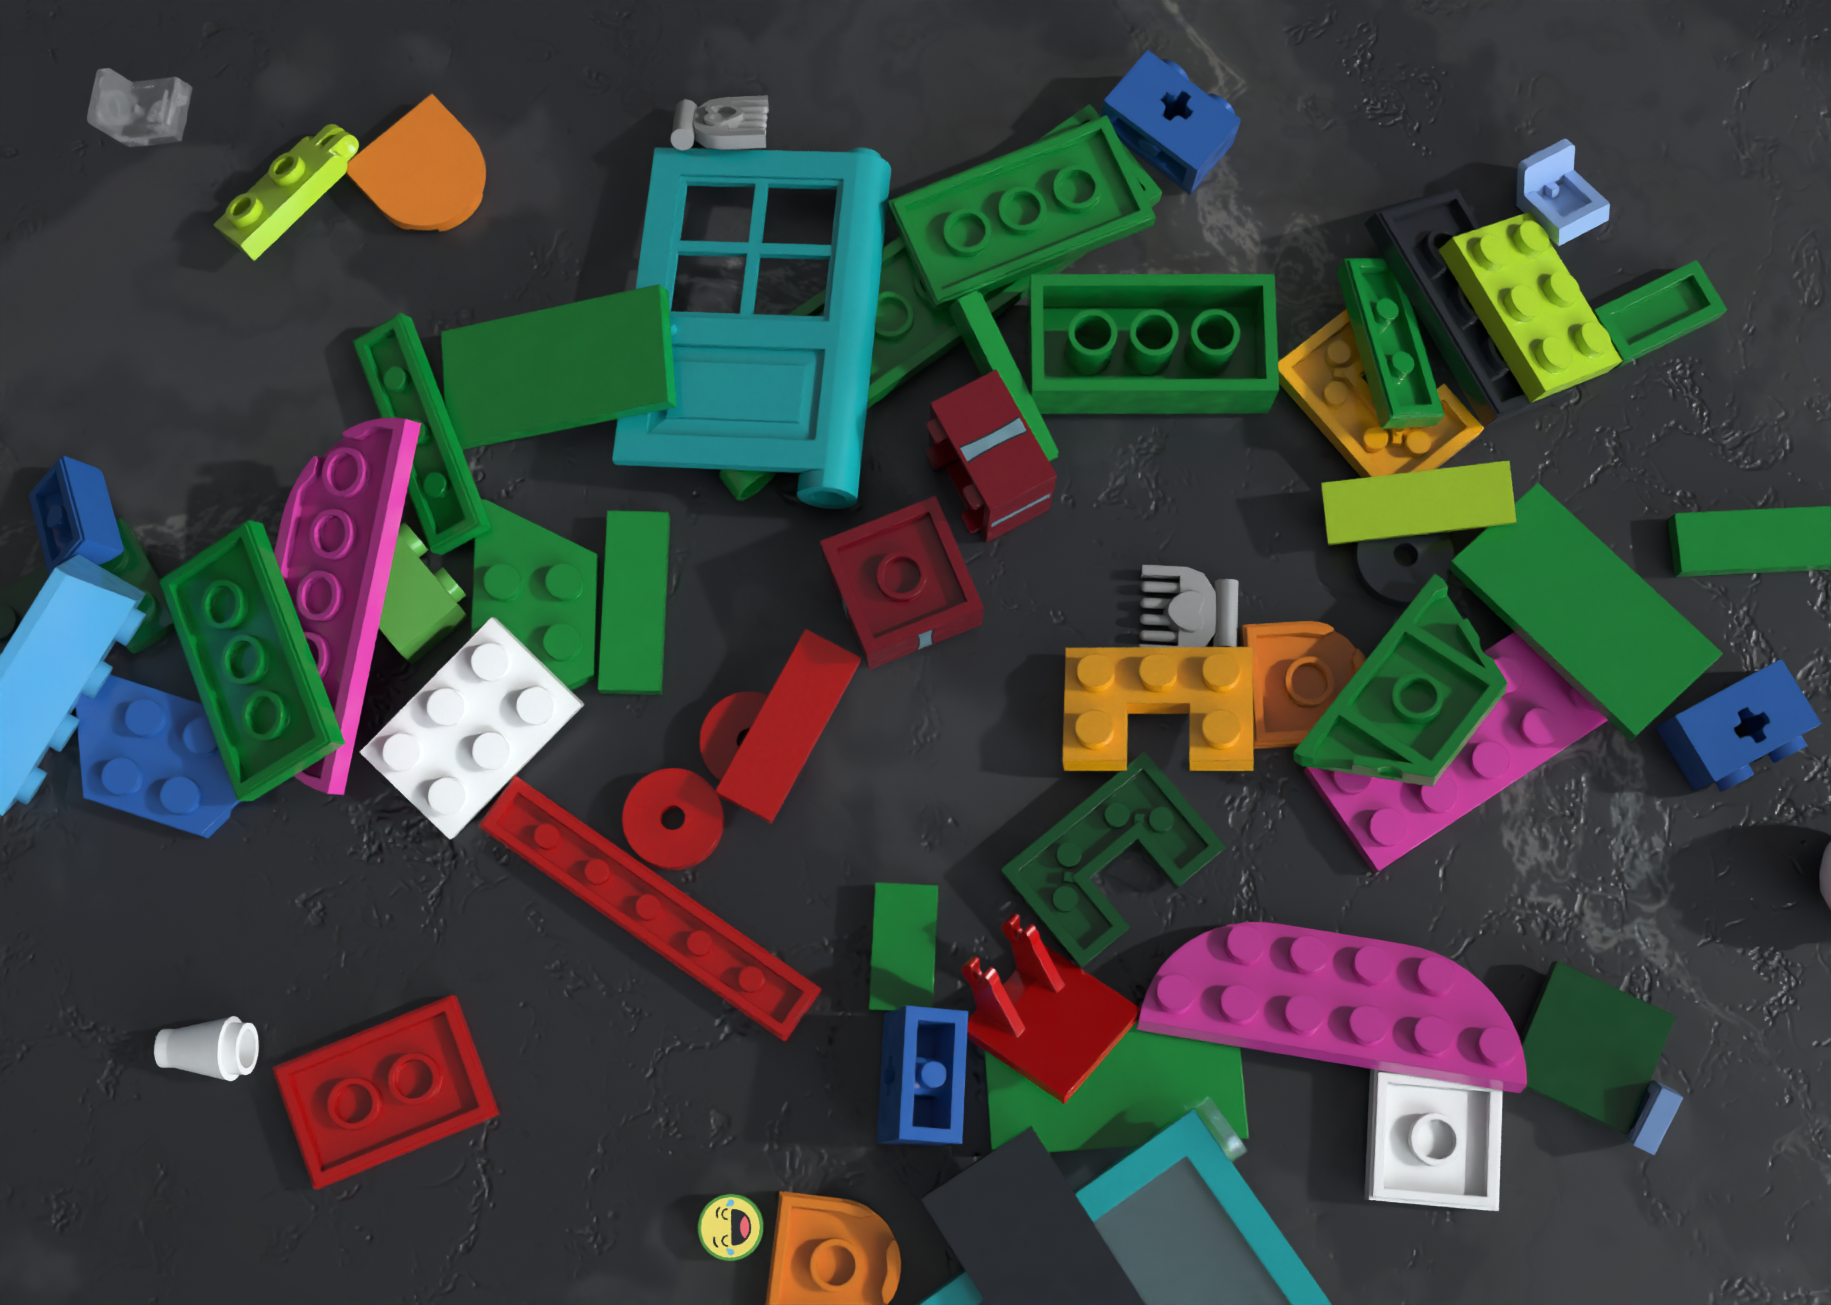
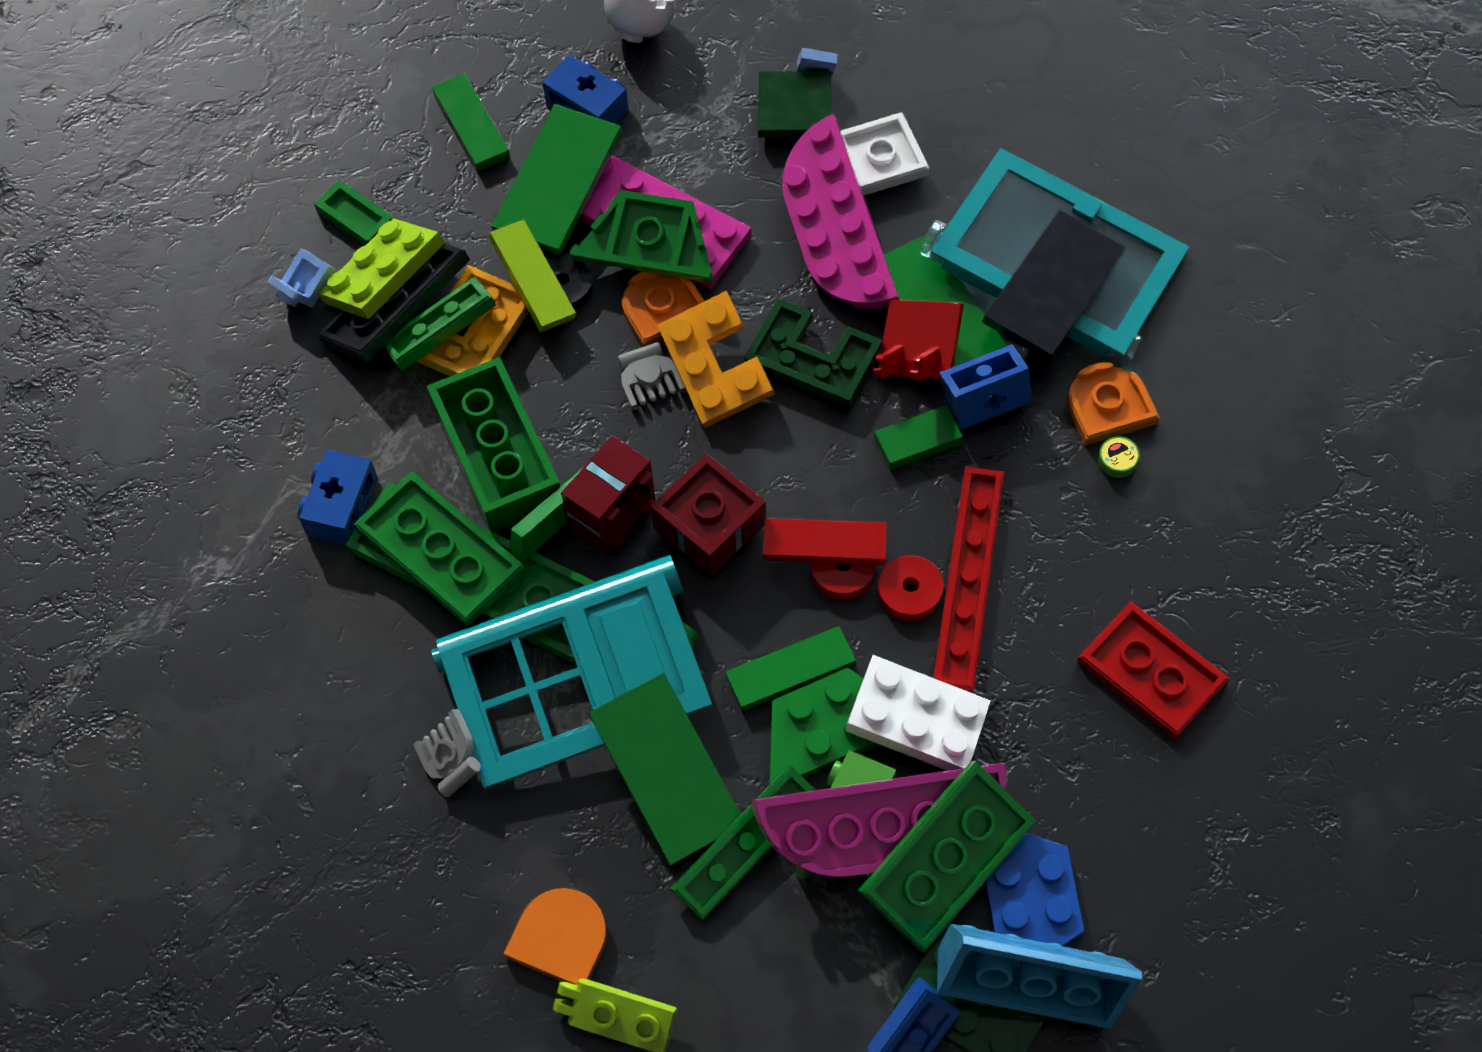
camera: 110 degrees left, 15 degrees down
(210, 1048) = (1187, 774): white cone -> none

